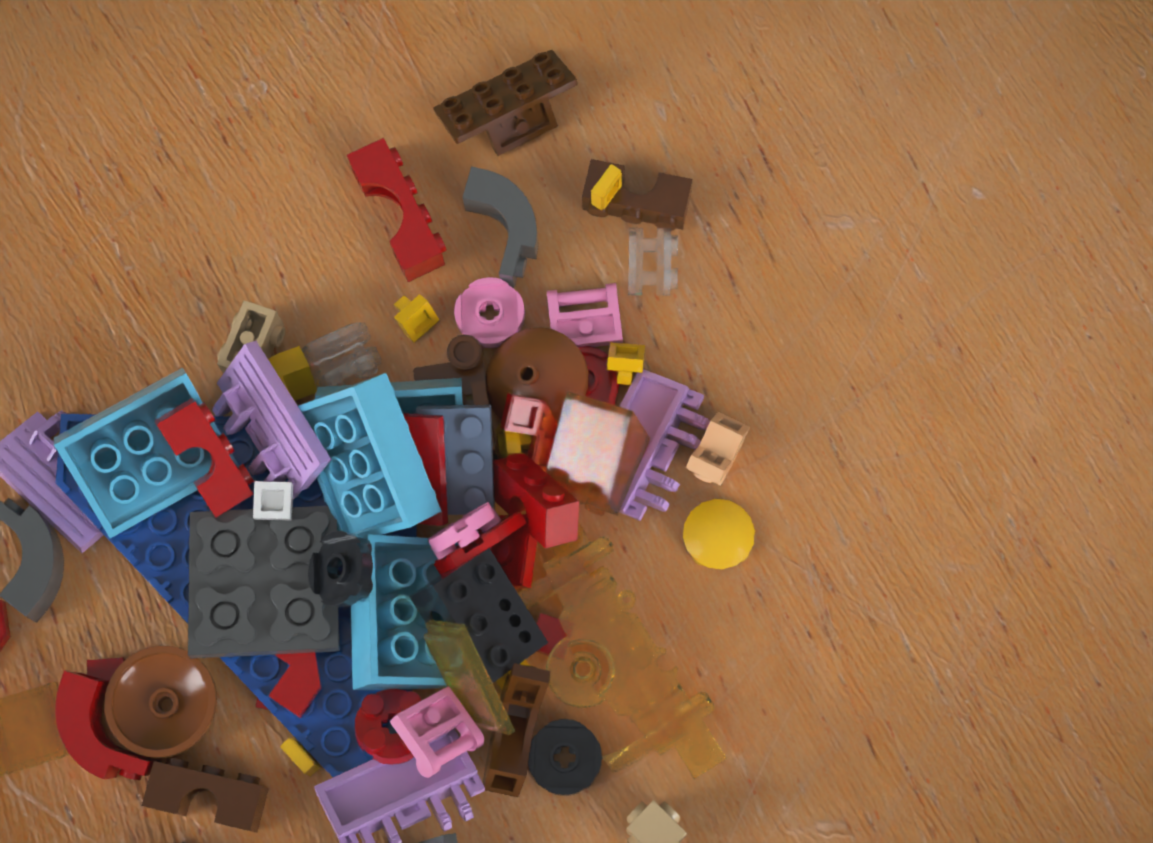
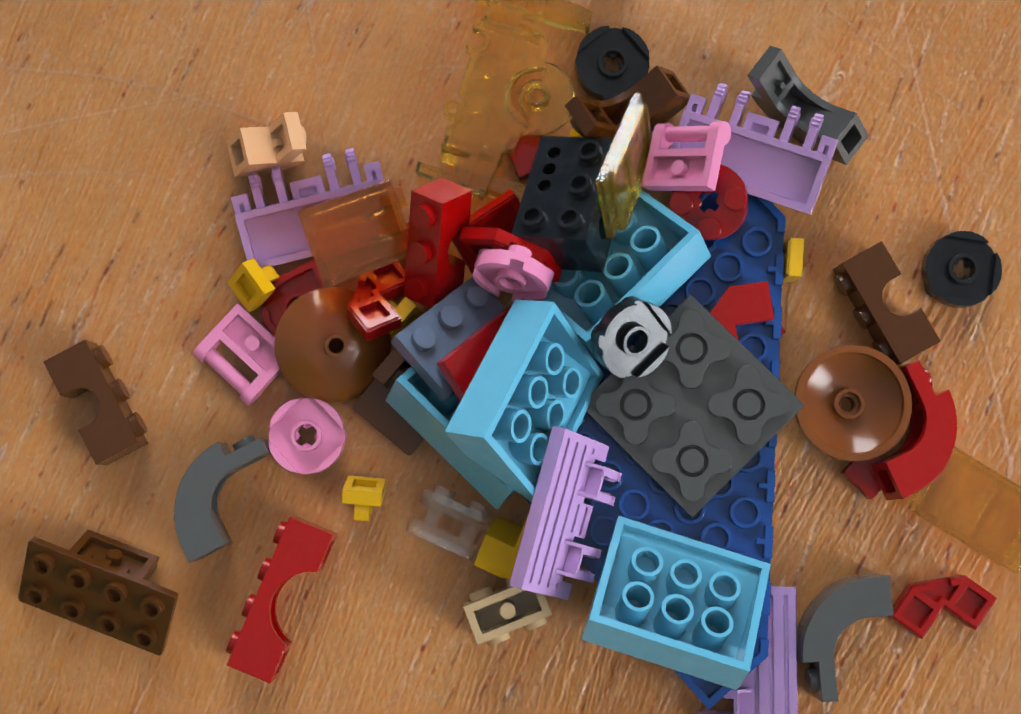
camera: 140 degrees left, 10 degrees up
(224, 482) = (633, 572): red arch -> none
(273, 500) = (624, 451): white tile -> none
(465, 352) = (359, 421): reddish brown tile -> none
(606, 187) = (111, 420): yellow tile -> none
(664, 277) = (127, 337): clear brick -> none
(718, 534) = (336, 96): yellow dish -> none

